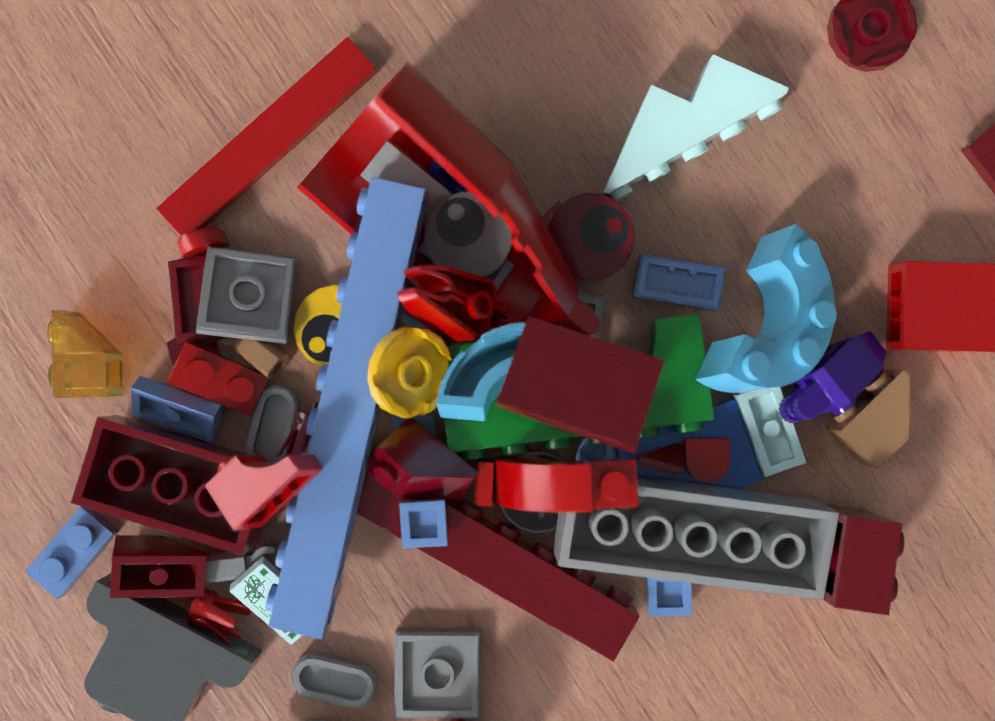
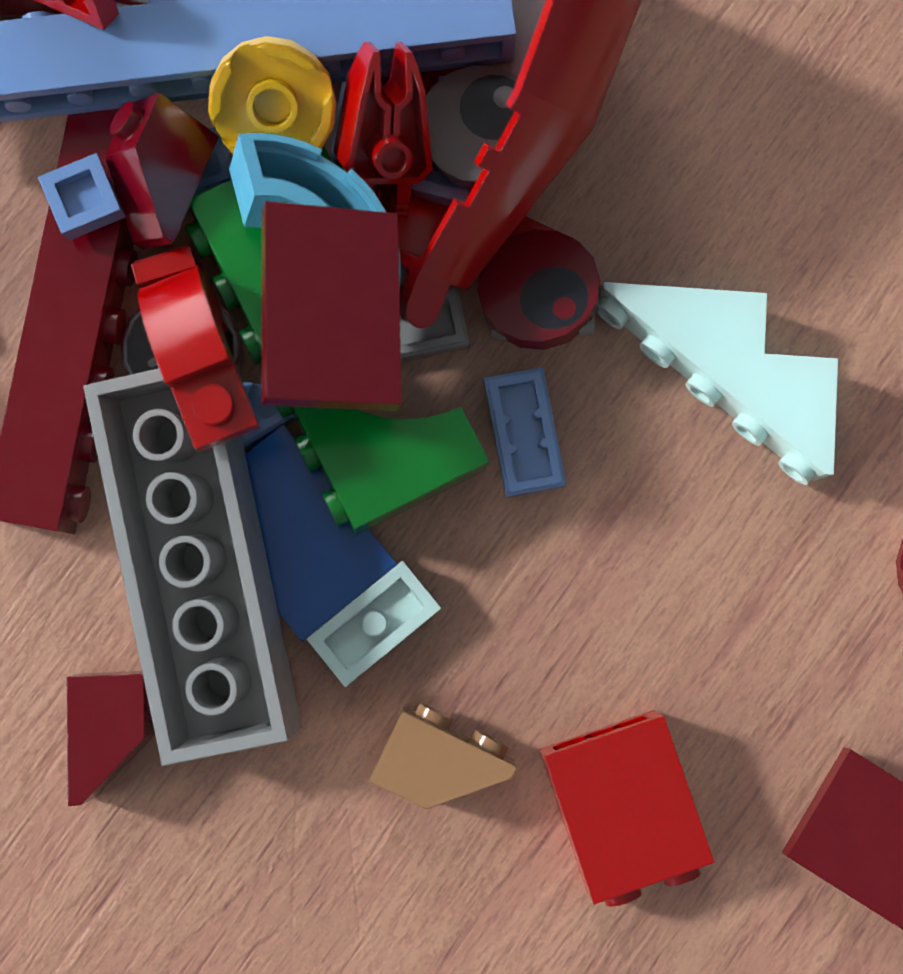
camera: 65 degrees right, 5 degrees down
(664, 458) = (278, 490): dark red slope -> none
(668, 598) = (96, 570): medium blue plate -> none
(706, 457) = (303, 549): red tile -> none
(775, 626) = (105, 729): none -> dark red slope
(795, 322) = (525, 601): medium azure brick -> none
(836, 379) = (471, 680): dark purple hinge -> none
(864, 561) = (233, 797): dark red brick -> none

